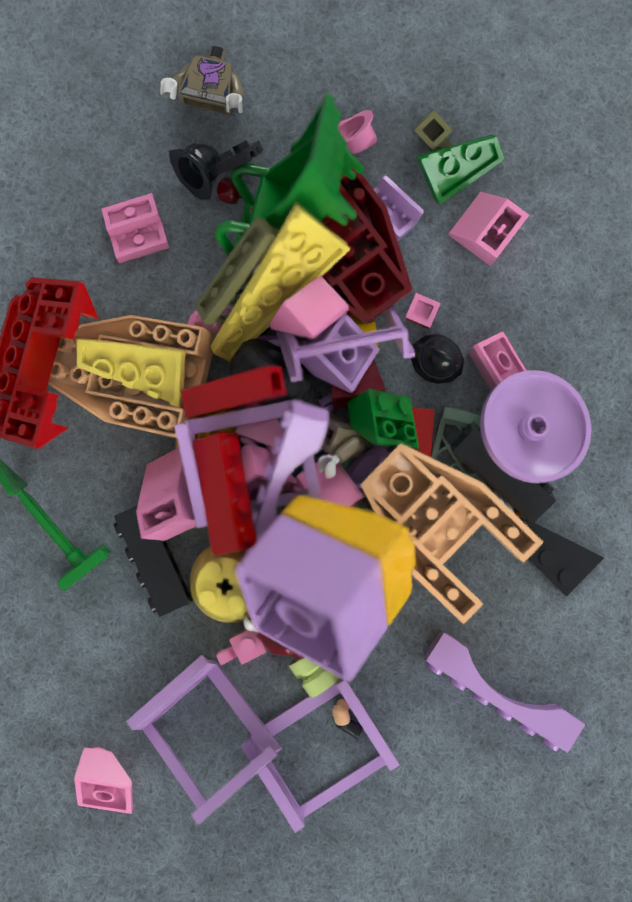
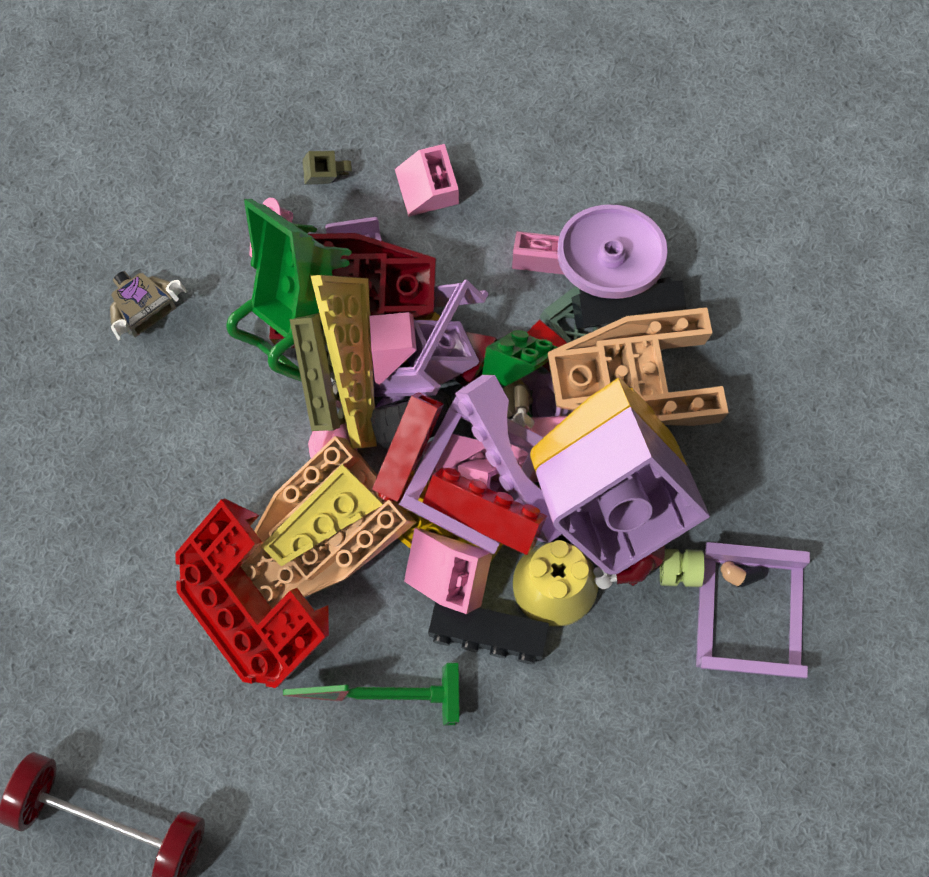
camera: 50 degrees left, 15 degrees down
(103, 782) = (651, 814): bright pink slope -> none
(131, 217) = (192, 440): bright pink slope -> none
(175, 691) = (615, 700): lavender piece -> none
(192, 168) = (199, 361): black piece -> none
(227, 191) = (235, 351): dark red piece -> none
(242, 154) = (218, 320): black wing -> none
(244, 646) = (618, 607): bright pink brick -> none
(422, 311) = (452, 273): bright pink plate -> none
(437, 359) = (505, 293): black piece -> none
(459, 165) = (363, 168): green wing -> none
(550, 721) = (754, 451): lavender arch -> none
(561, 560) = (736, 316): black wing -> none

